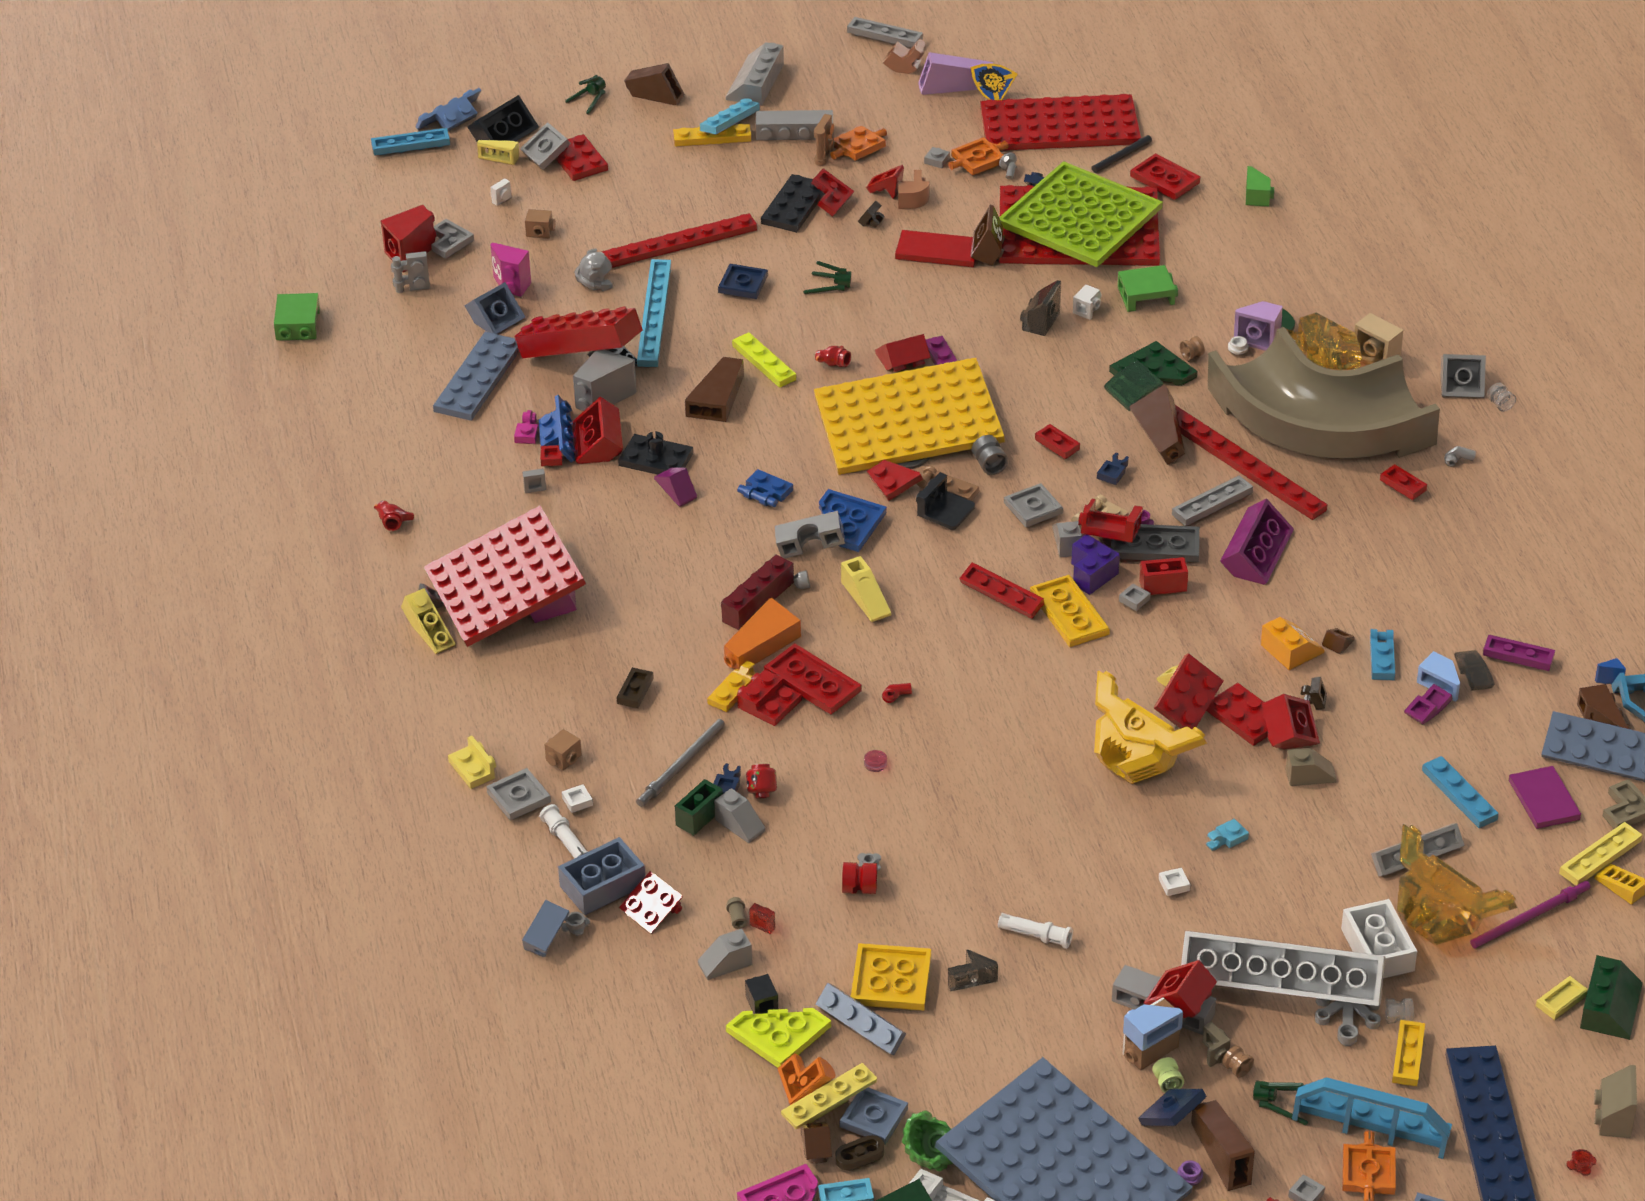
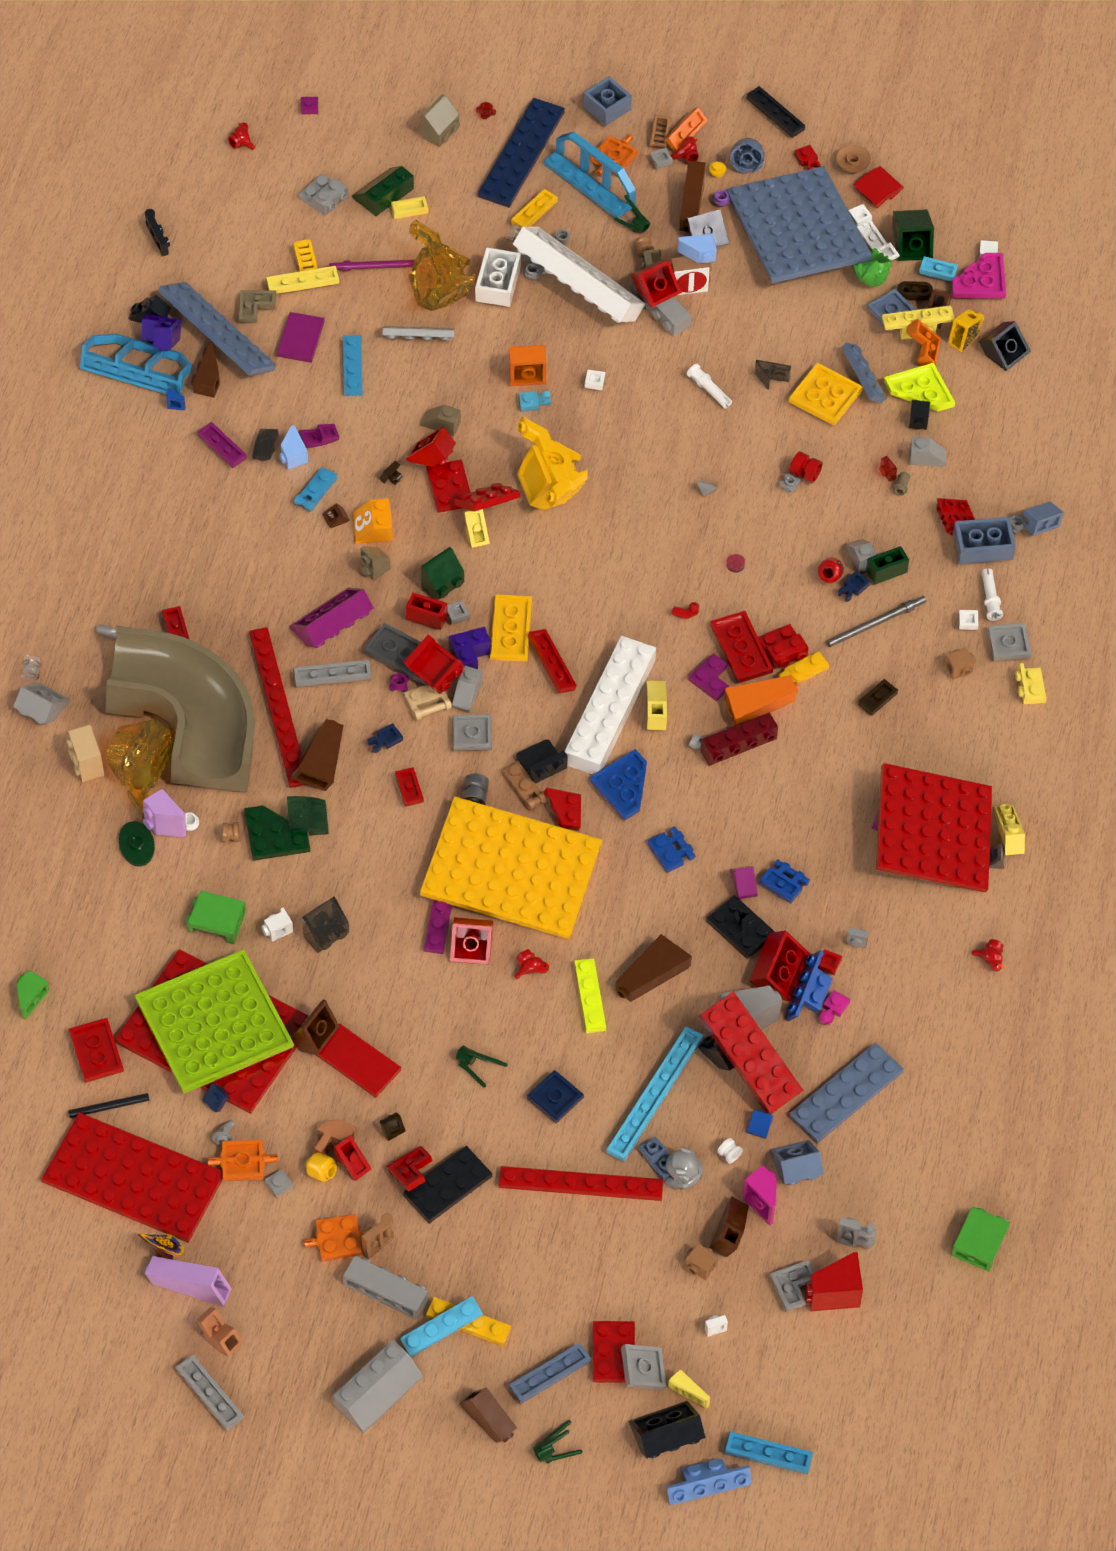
camera: 155 degrees left, 15 degrees up
(526, 237) = (730, 1227): none -> reddish brown slope
(560, 297) = (730, 1150): none -> white wheel
(621, 126) = (550, 1373): none -> sand blue plate
(625, 278) = (656, 1155): none -> sand blue slope
(635, 496) = (782, 885): none -> blue plate
(703, 1125) = (1005, 345): none -> black slope
(761, 1116) = (965, 329): none -> yellow torso
(793, 535) = (680, 780): light grey arch -> none
(829, 641) = (707, 679): none -> magenta plate
(909, 167) = (321, 1167): none -> yellow head
(911, 573) = (610, 705): none -> white brick
(960, 820) = (706, 488): none -> light grey slope
(1175, 613) = (442, 574): none -> dark green slope
(1256, 596) = (374, 562): none -> dark tan slope
(1259, 848) = (527, 365): none -> orange brick

